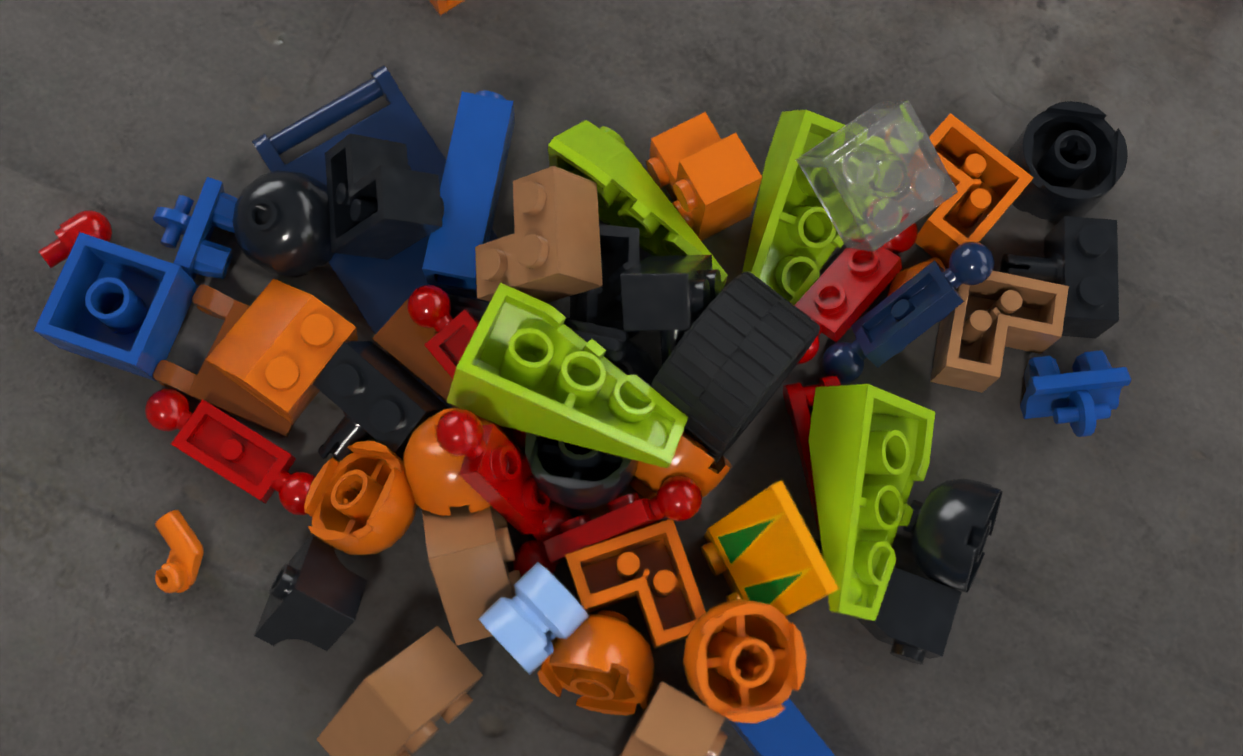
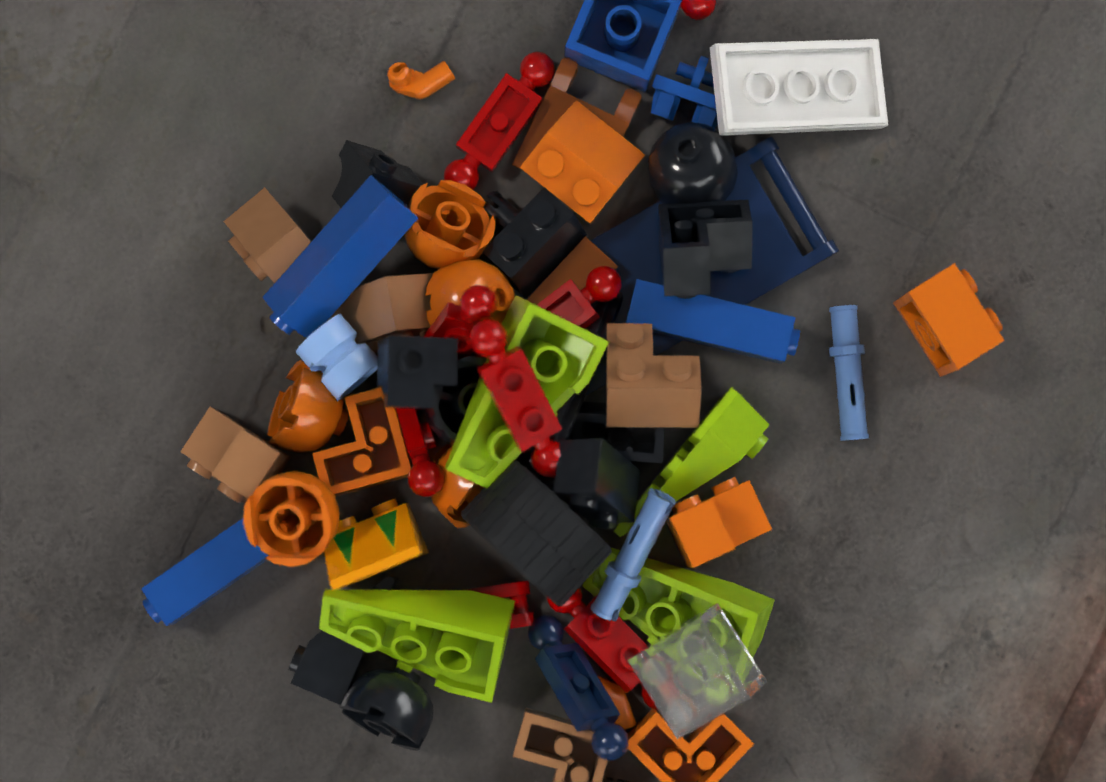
camera: 95 degrees right, 10 degrees up
(191, 112) = (798, 86): none -> white tile
(407, 625) = (338, 259): none -> blue brick
(521, 50) = (848, 371): none -> medium blue pin
(545, 511) = (412, 368): none -> black brick
(573, 379) = (517, 395): none -> red plate
(748, 255) = (625, 571): none -> medium blue pin

